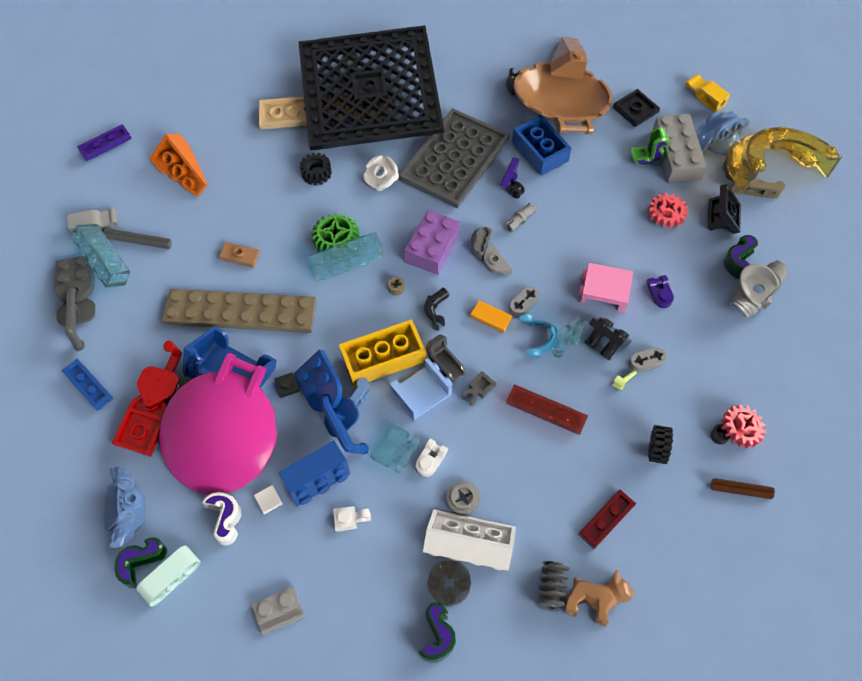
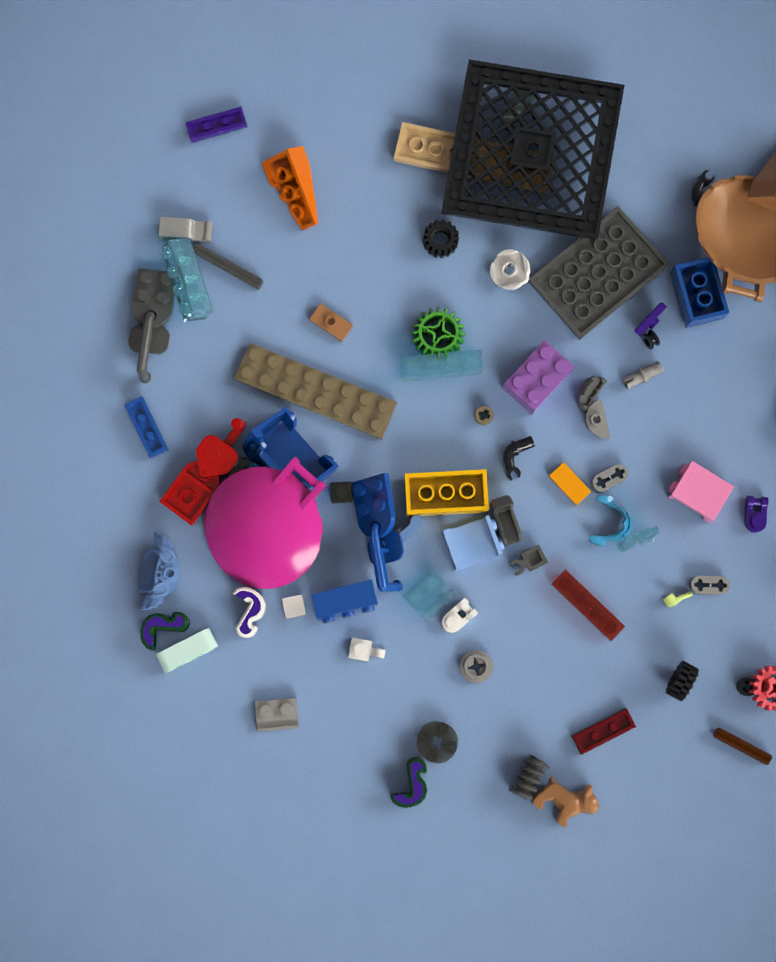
camera: 15 degrees right, 20 degrees up
(470, 540) = (469, 709): white slope -> none
(616, 337) = (682, 548): black plate -> none

